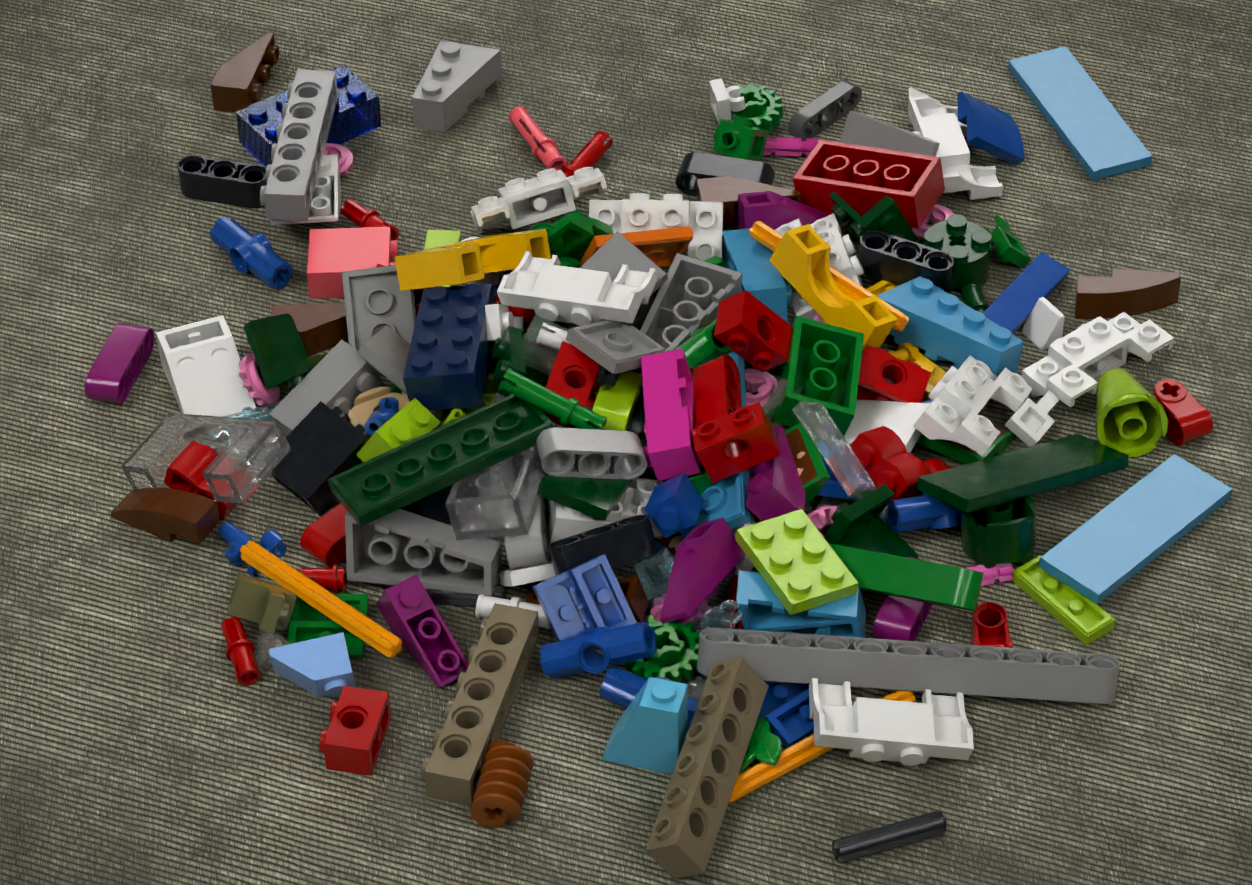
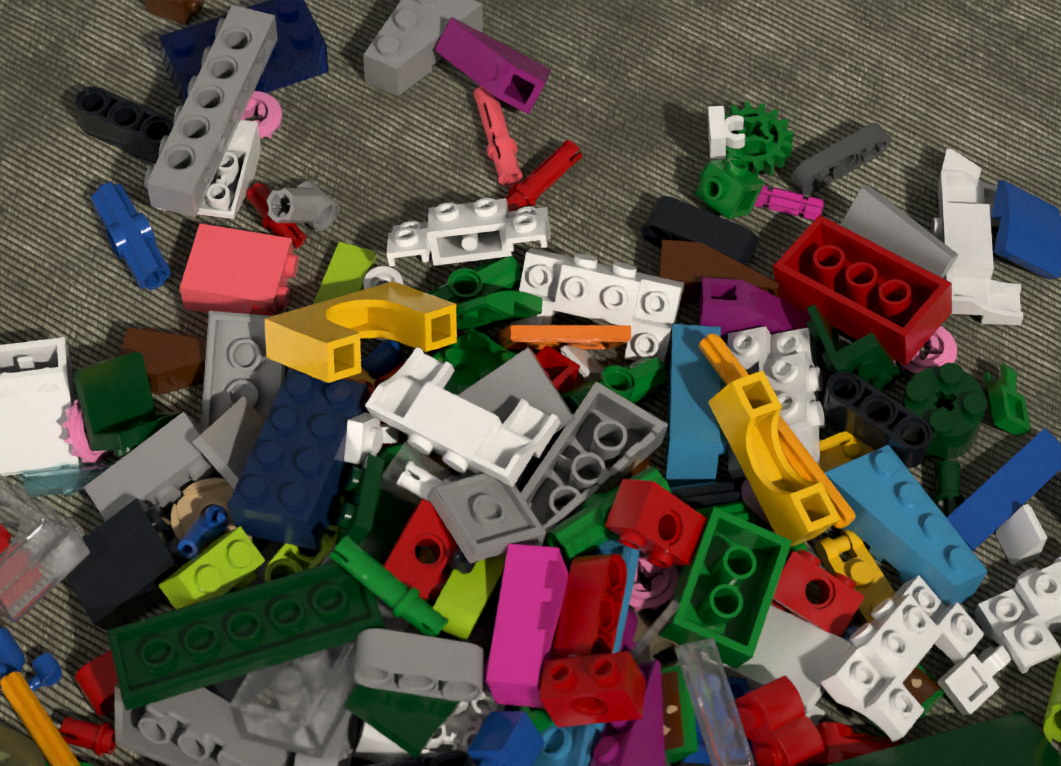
camera: 10 degrees right, 15 degrees up
(392, 207) = (303, 205): none -> light grey piece
(520, 88) = (493, 65): none -> magenta slope

